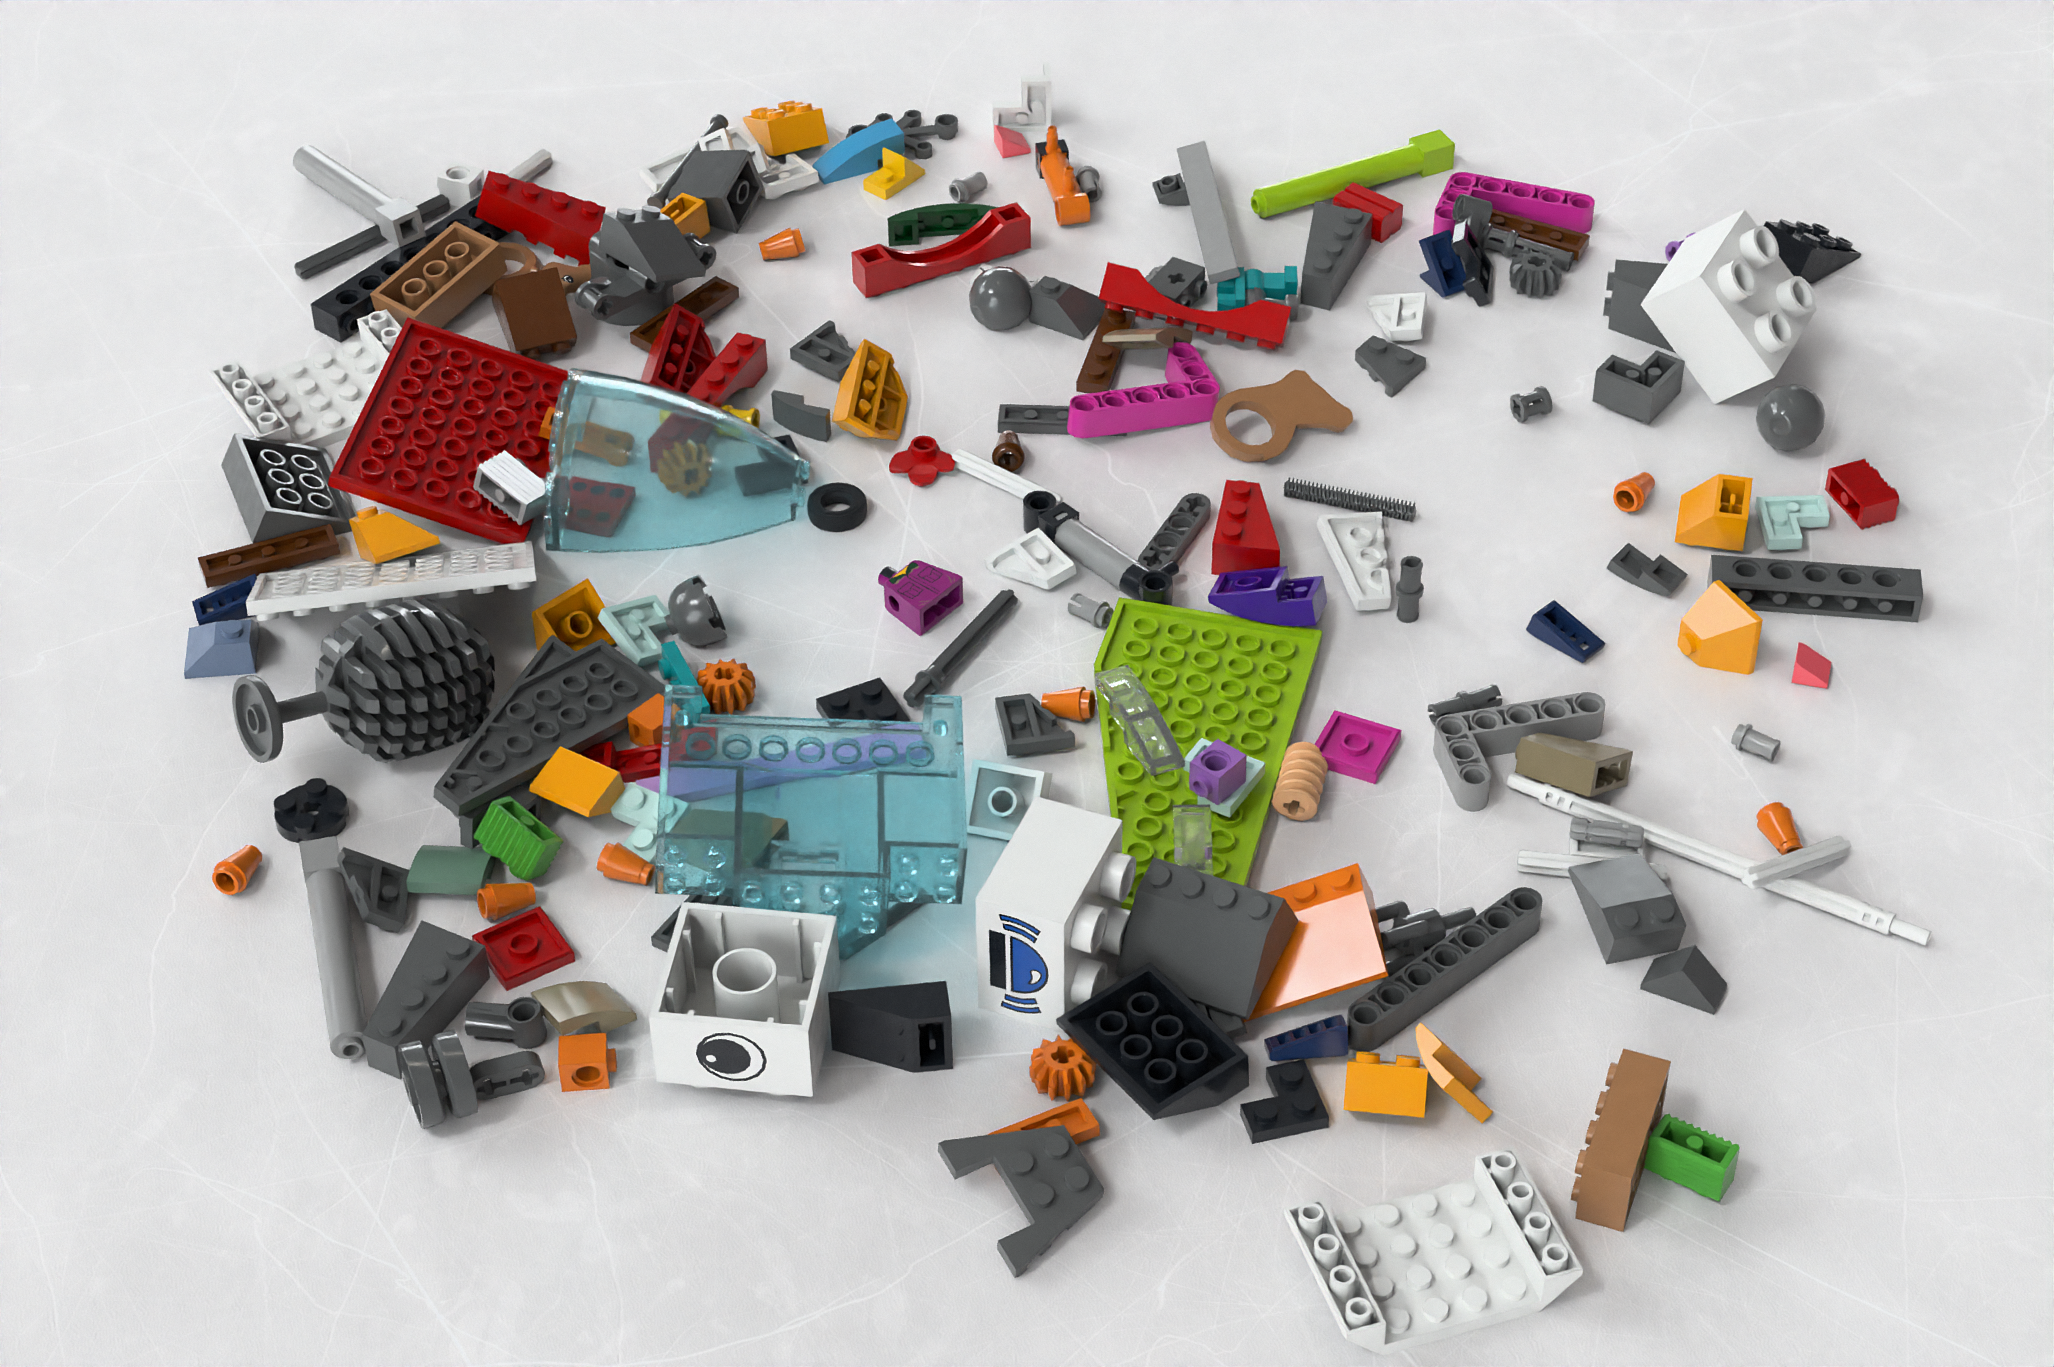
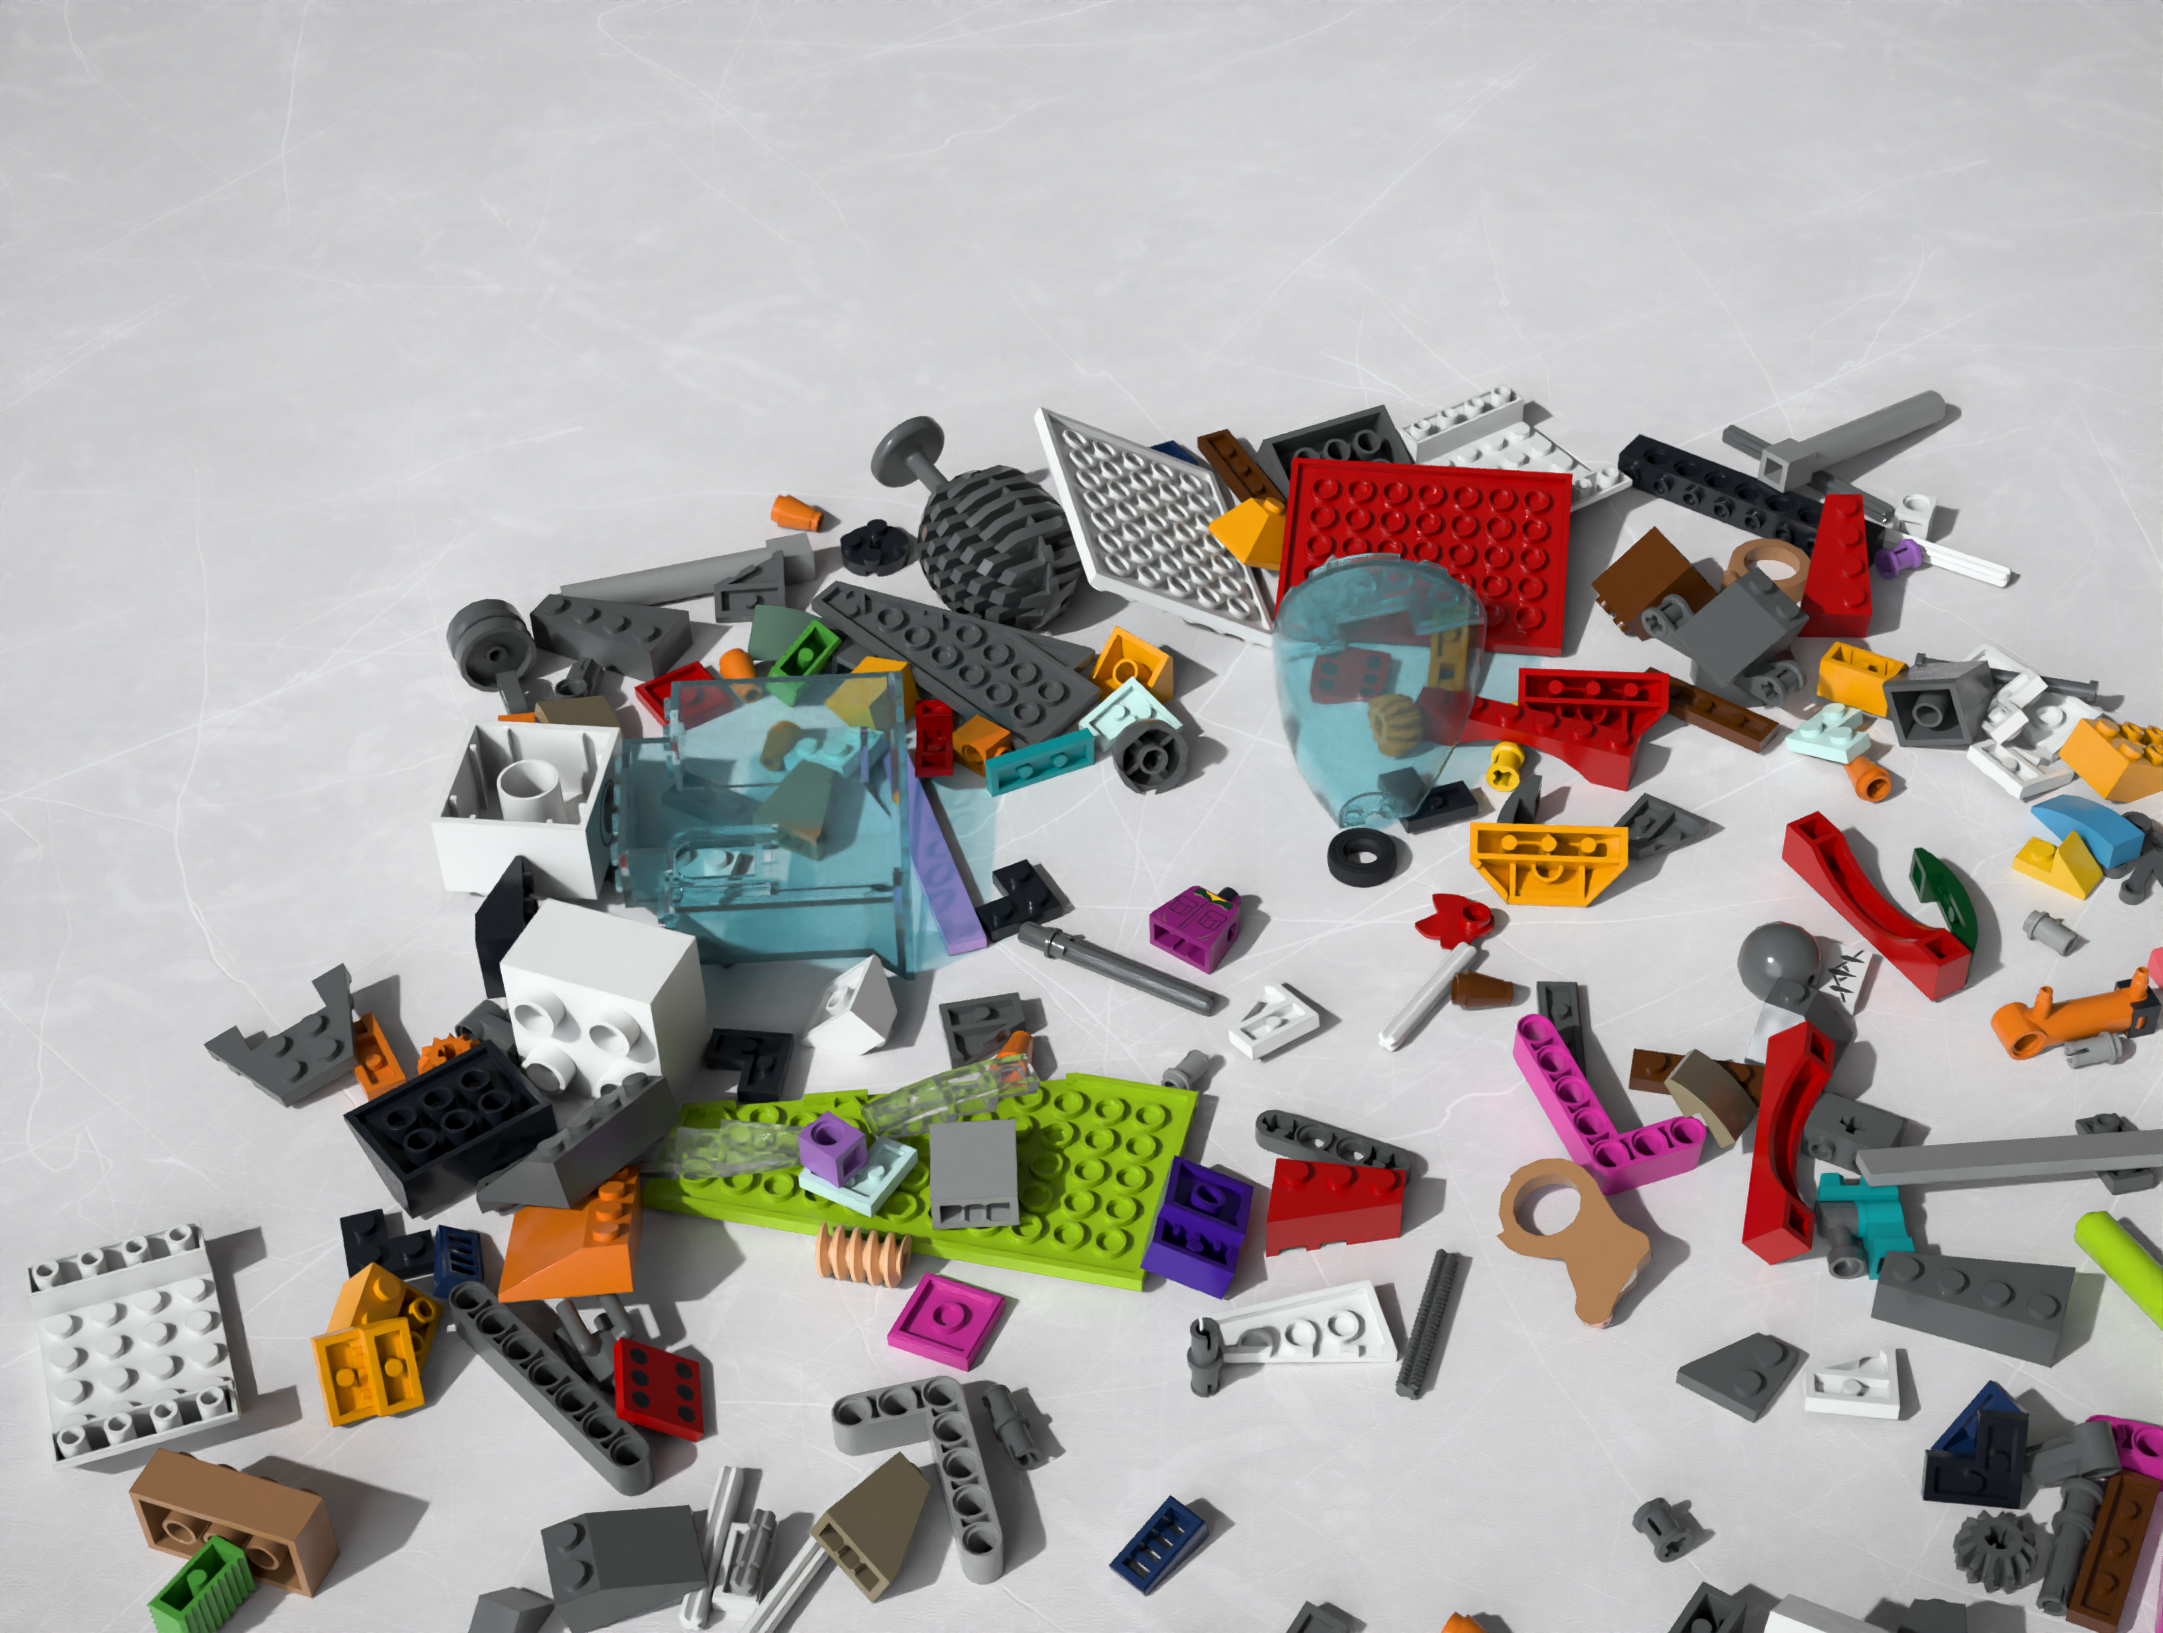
camera: 90 degrees right, 0 degrees up
(442, 277) = (1697, 512): medium nougat brick -> none
(727, 686) = (1041, 789): orange gear -> none
(736, 260) = (1831, 734): none -> light aqua plate
(1013, 1048) = (491, 1023): none -> dark grey piece
(1102, 557) = (1328, 1041): piece -> none
(1224, 706) = (974, 1174): none -> light grey brick
(1385, 211) = (2102, 1349): red brick -> none
(1453, 894) = (658, 1390): none -> red tile

